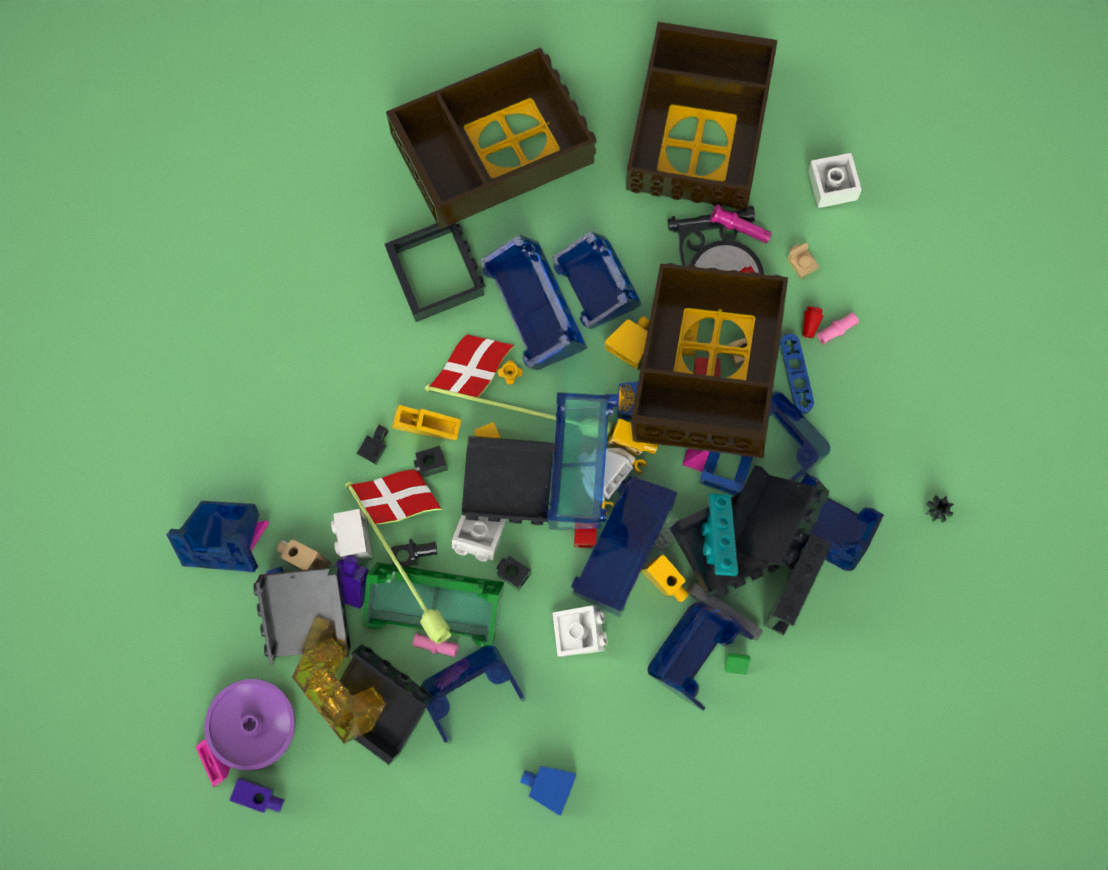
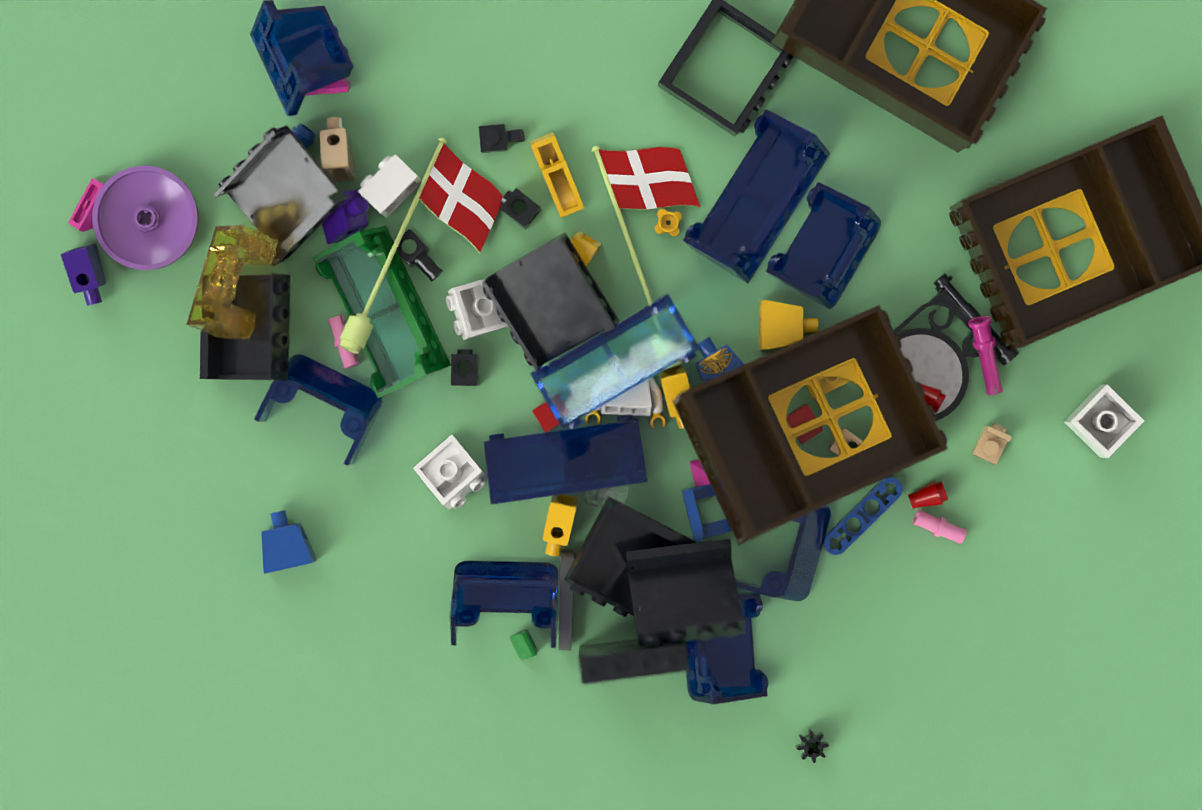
camera: 50 degrees right, 15 degrees up
(720, 536) = (631, 552): teal bracket -> none

